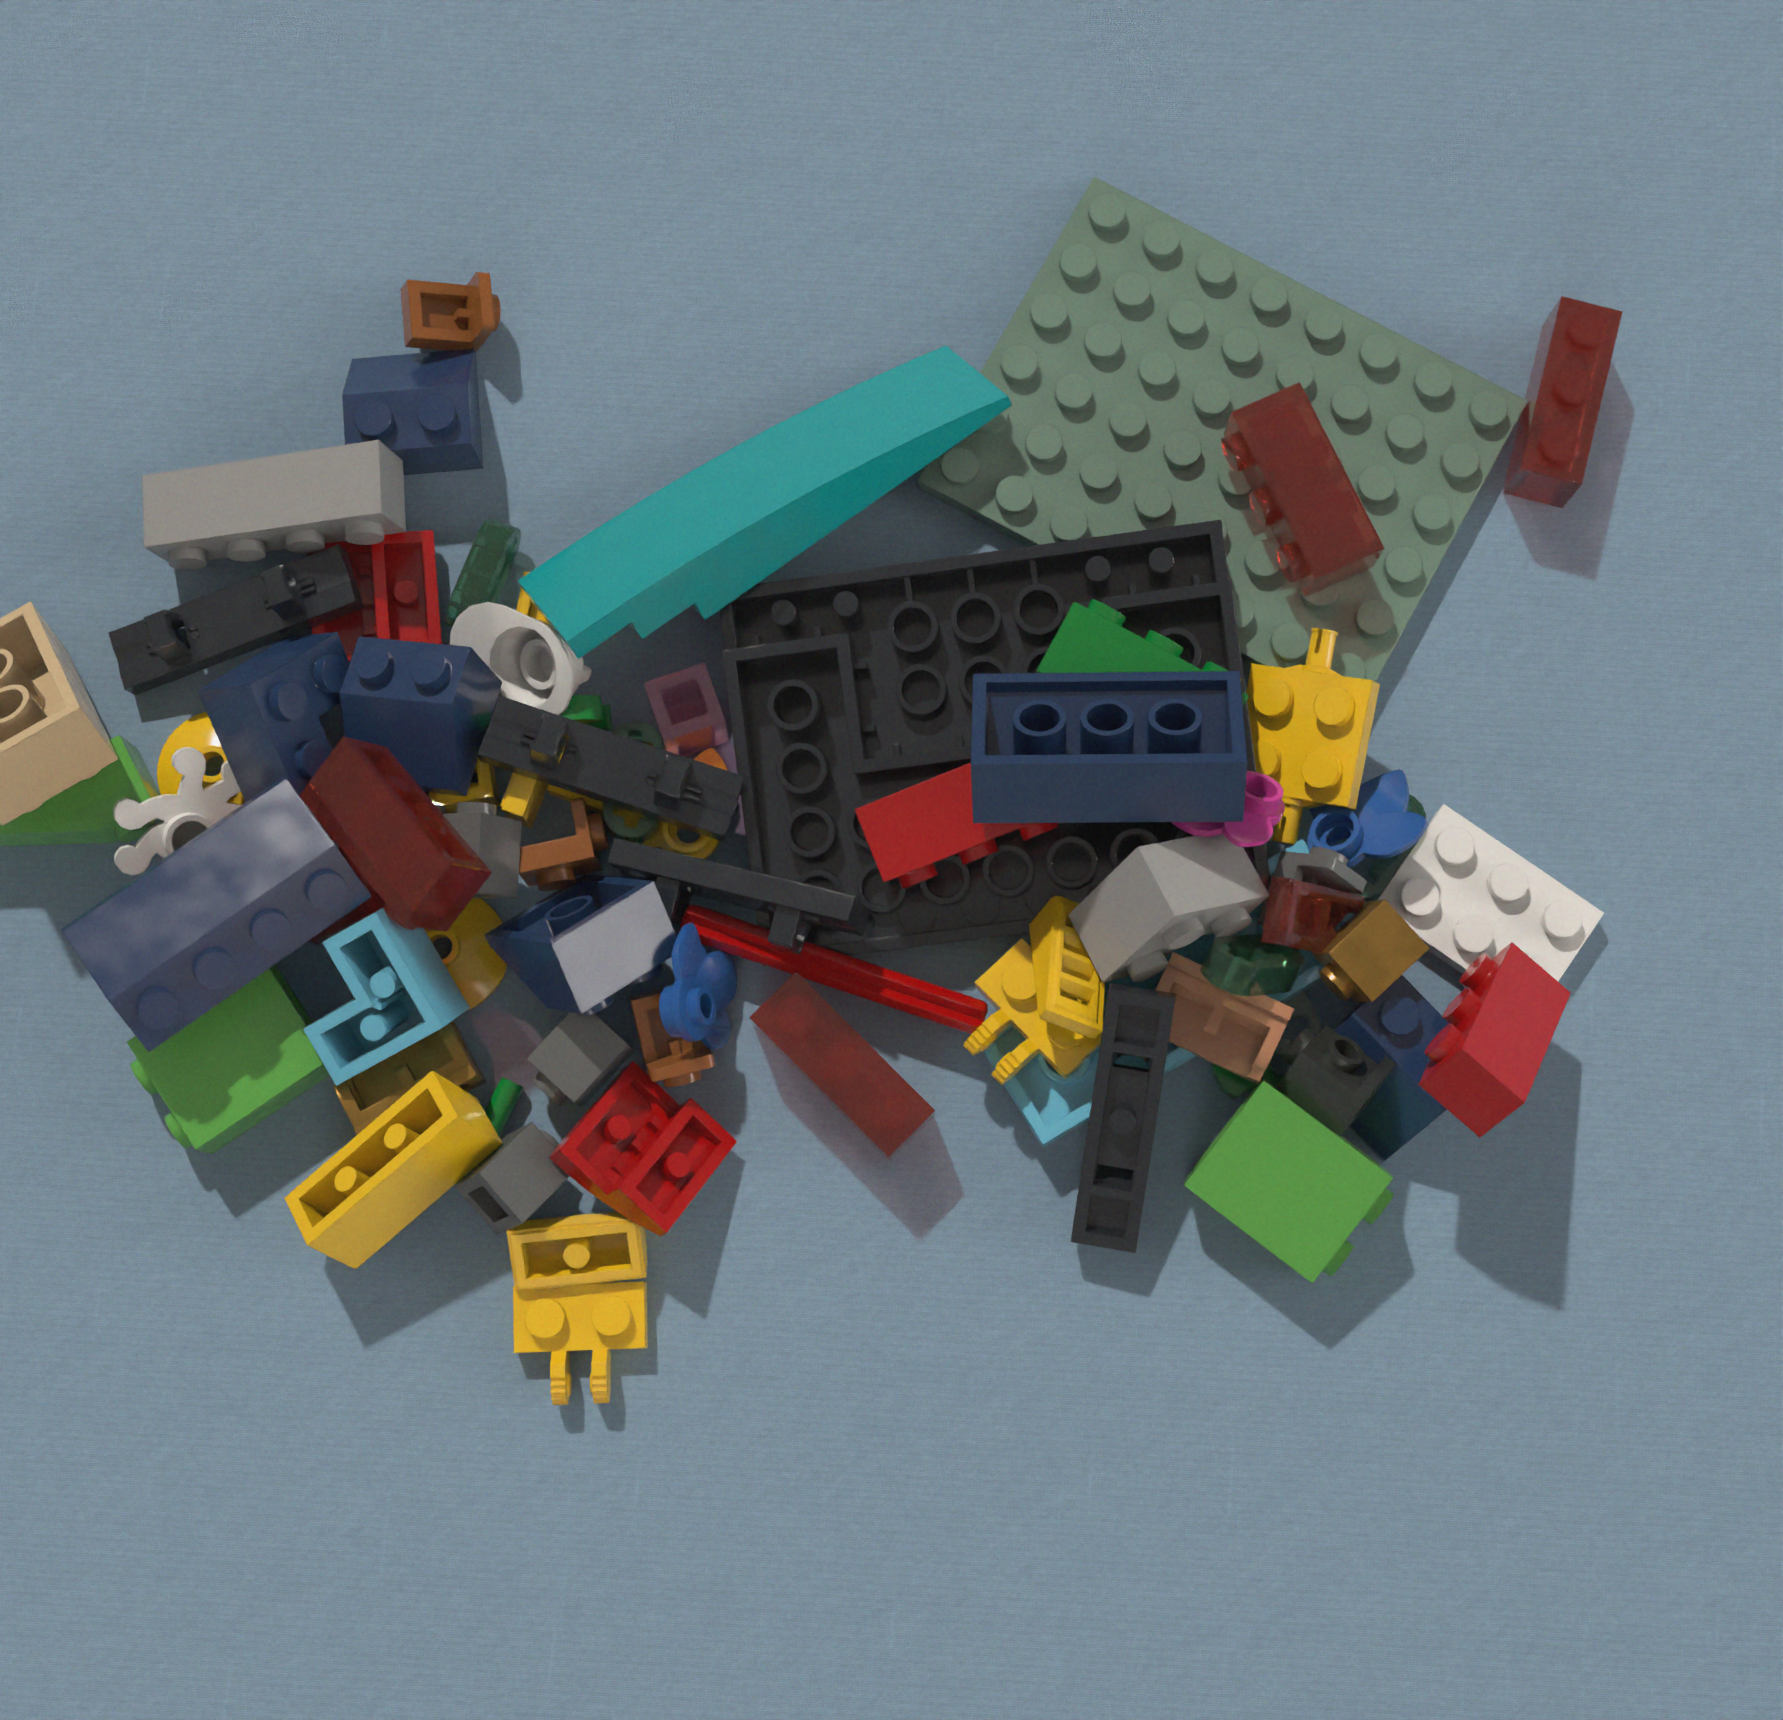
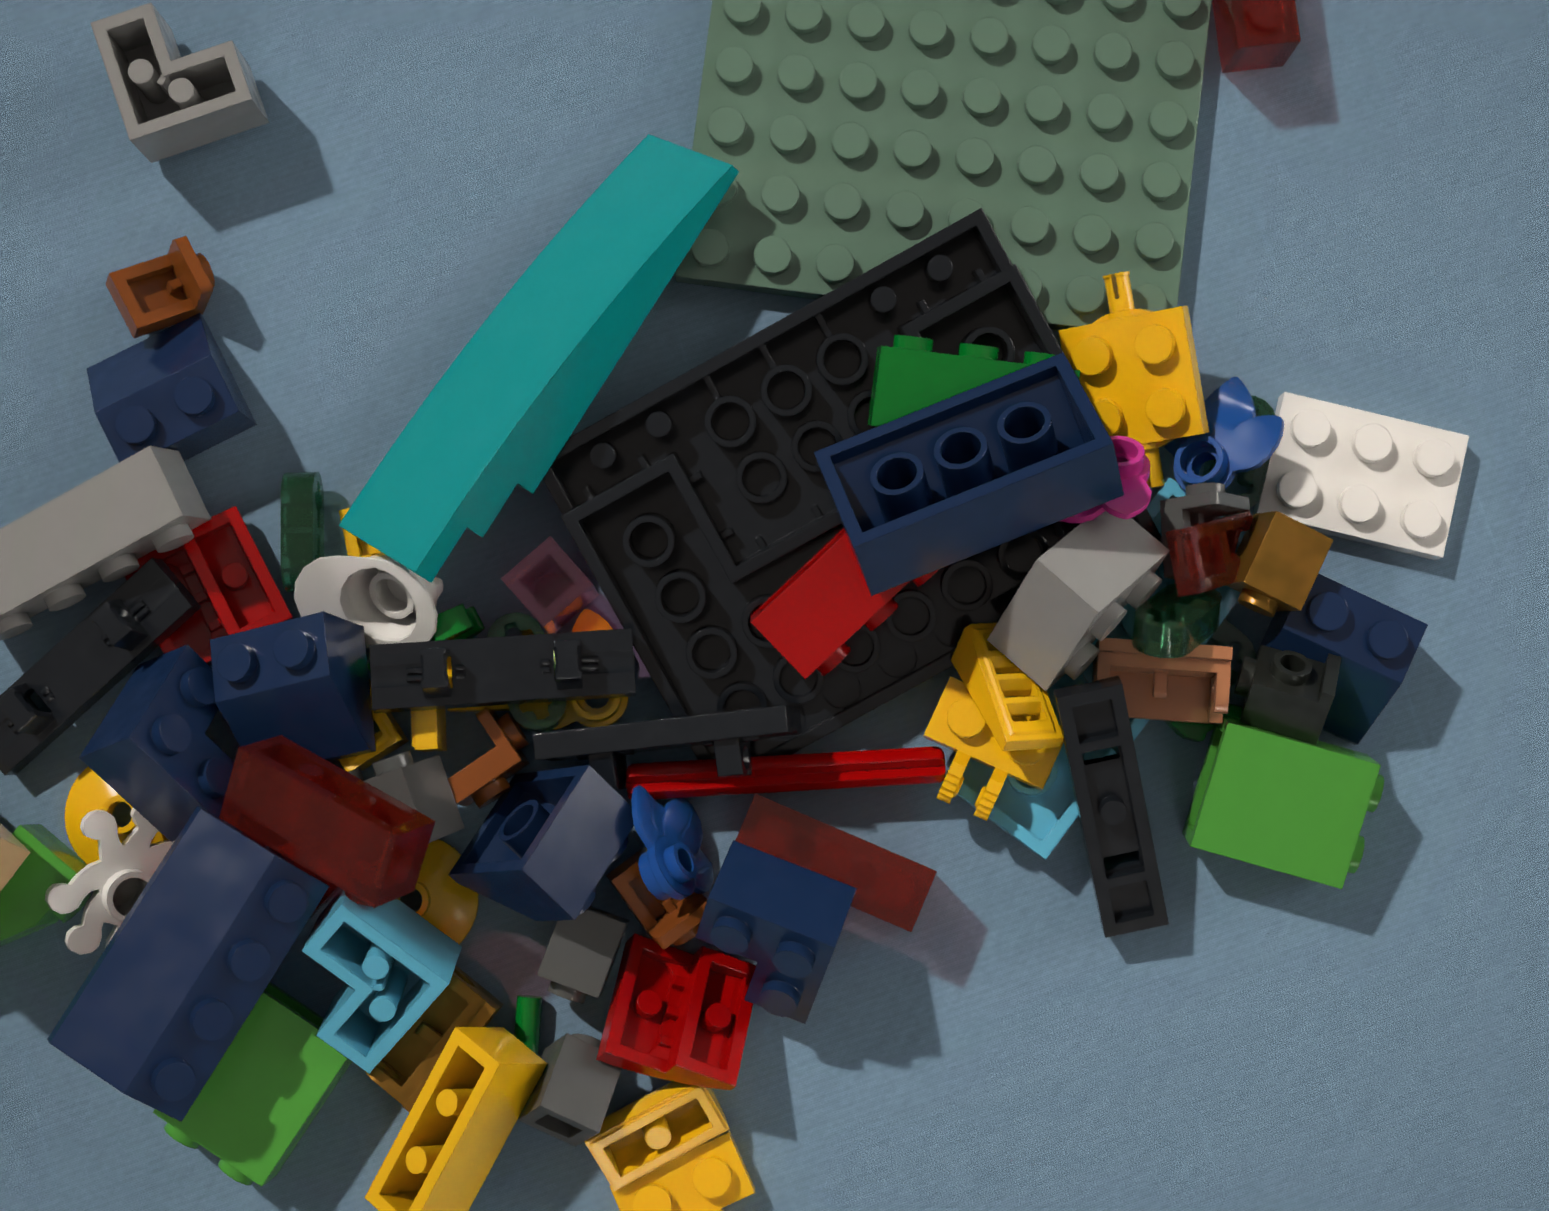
camera: 25 degrees left, 5 degrees up
(526, 148) = (173, 99): none -> light grey brick
(773, 1097) = (781, 920): none -> dark blue brick
(1300, 490) = (1041, 148): clear red brick -> none
(1494, 1038) = (1425, 601): red brick -> none

